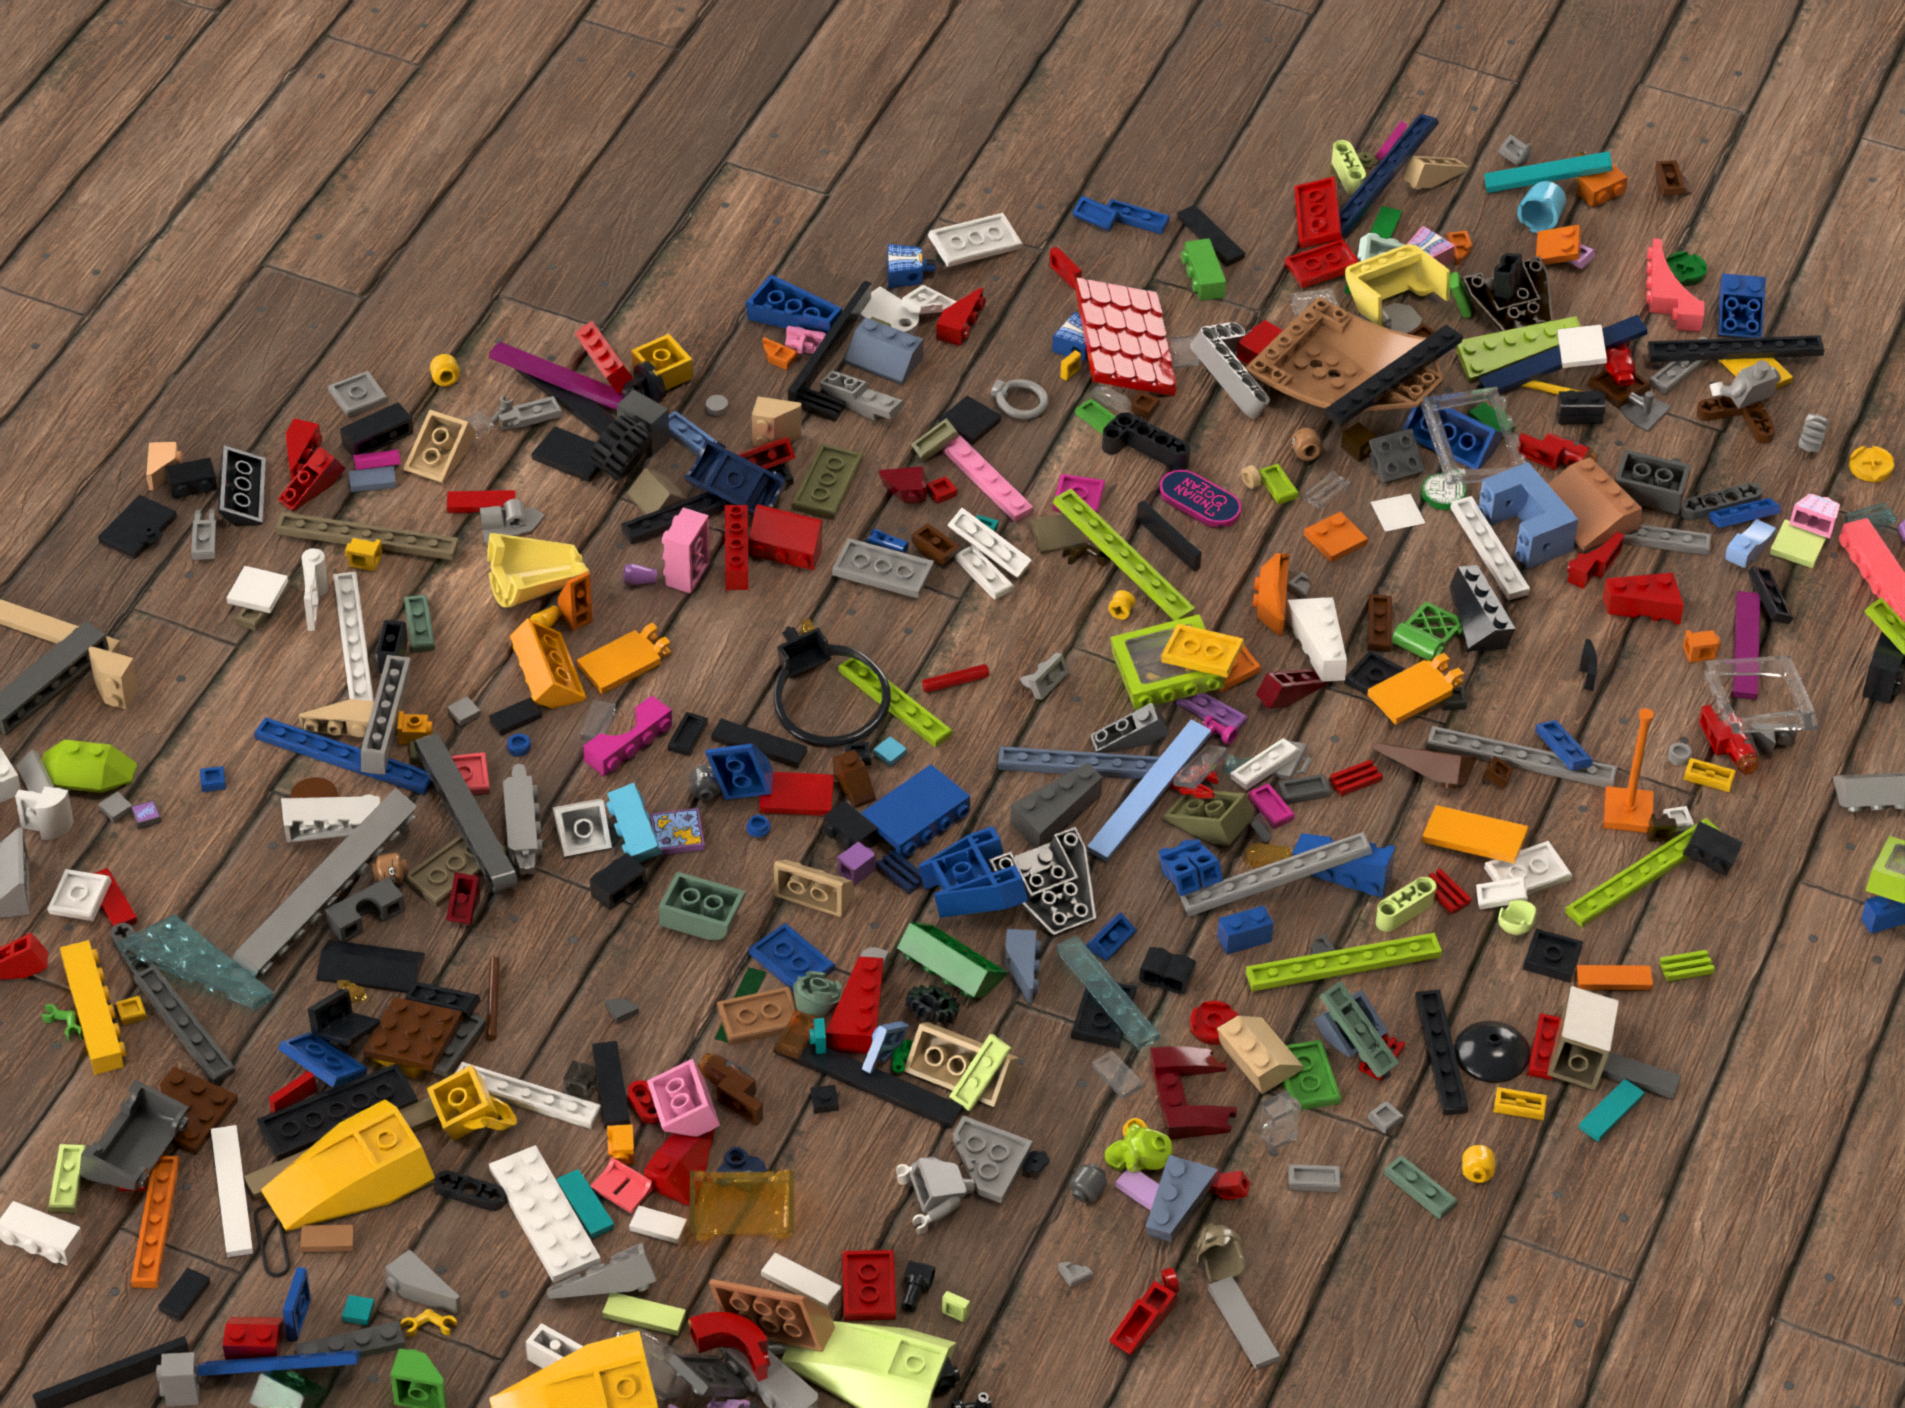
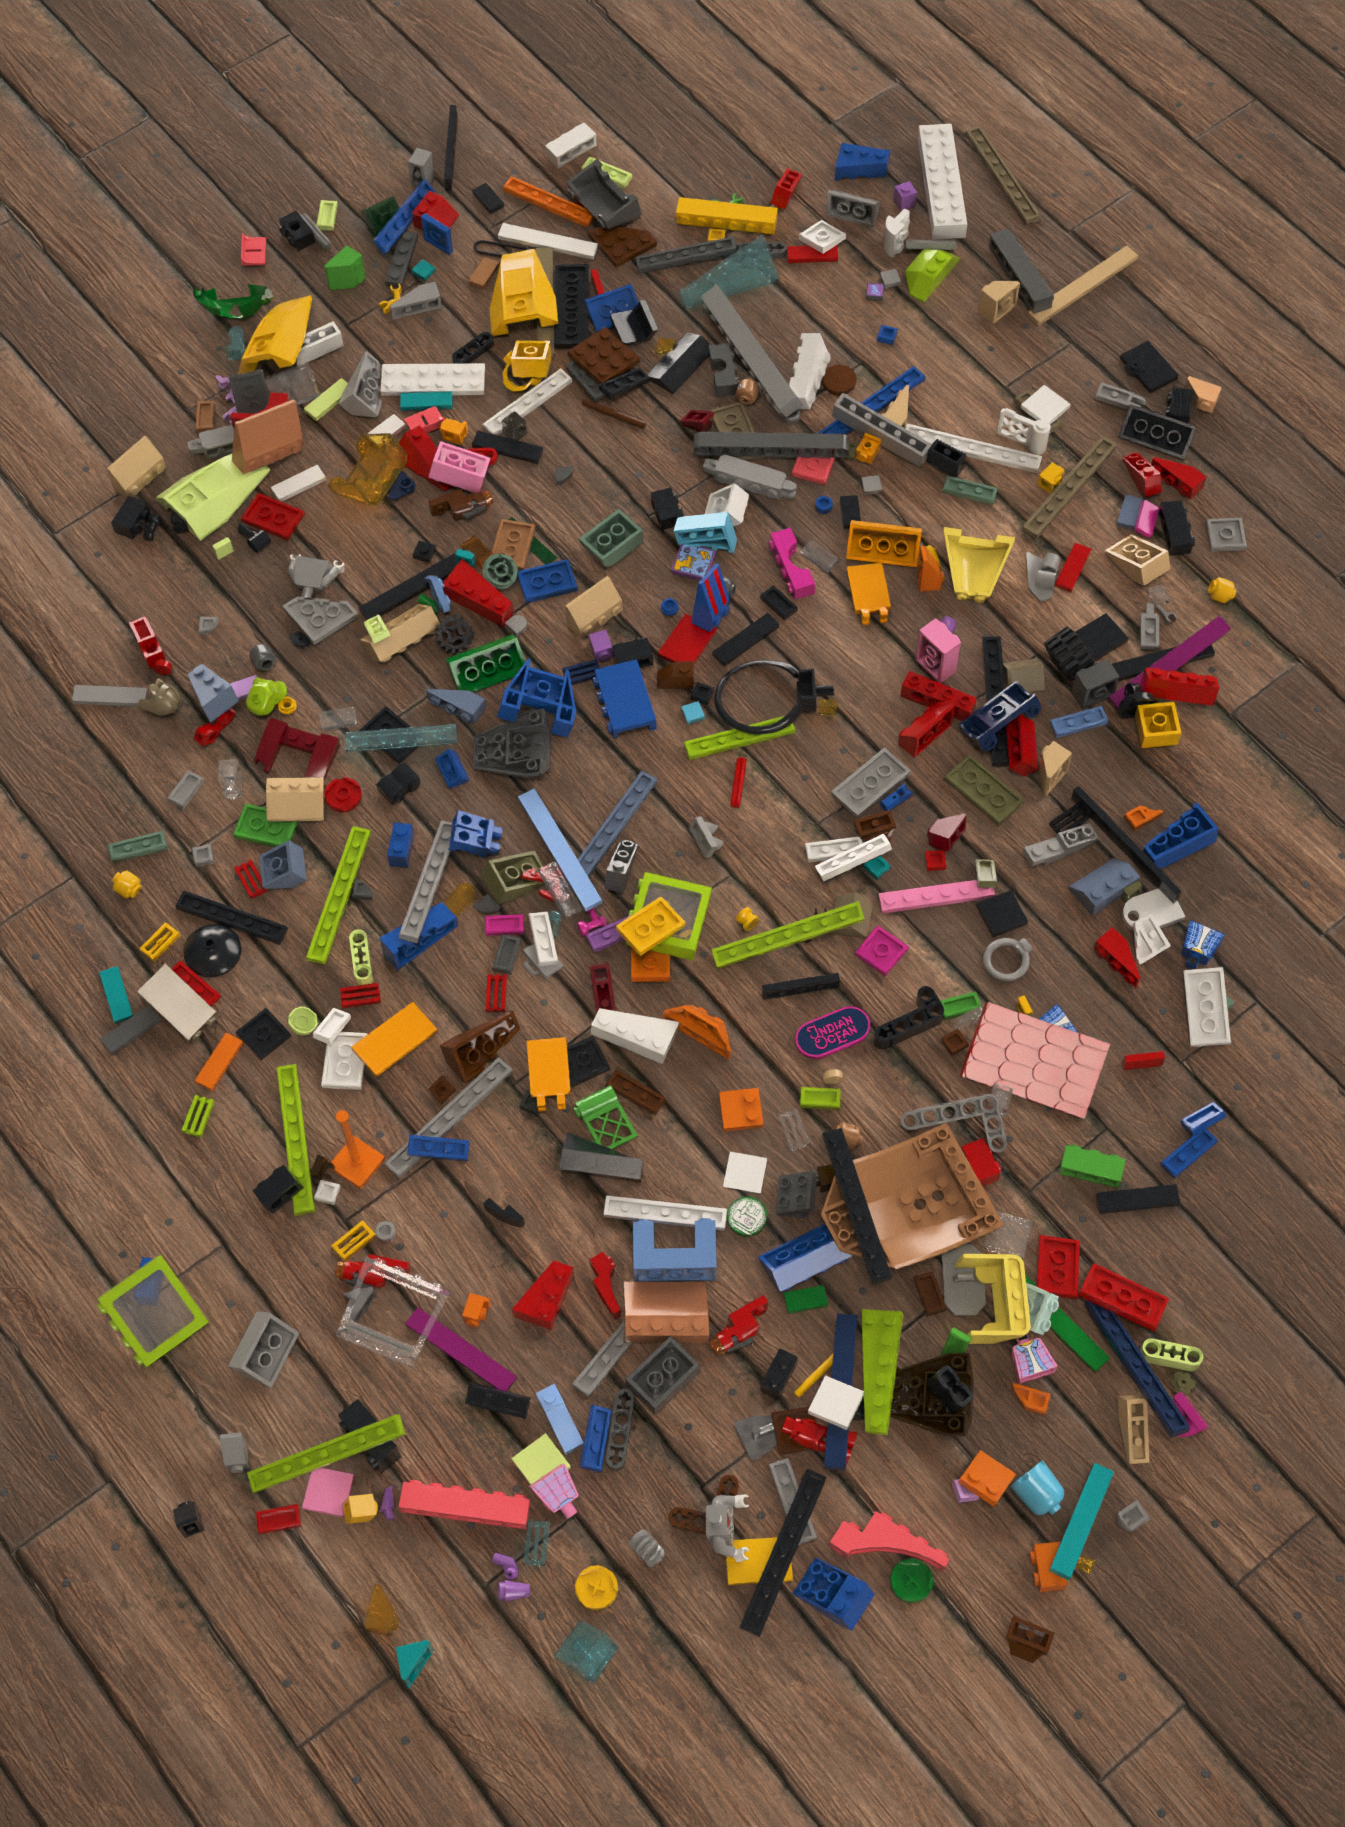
camera: 120 degrees right, 15 degrees up
(716, 405) = (1102, 751): light grey tile -> none
(803, 340) = (1149, 831): bright pink hips -> none
(1055, 805) = (577, 779): dark grey wedge -> none
(1300, 585) = (703, 1057): light grey tile -> none
(1359, 1029) = (261, 853): sand green hinge -> none
(1451, 472) = (778, 1221): clear windscreen -> none

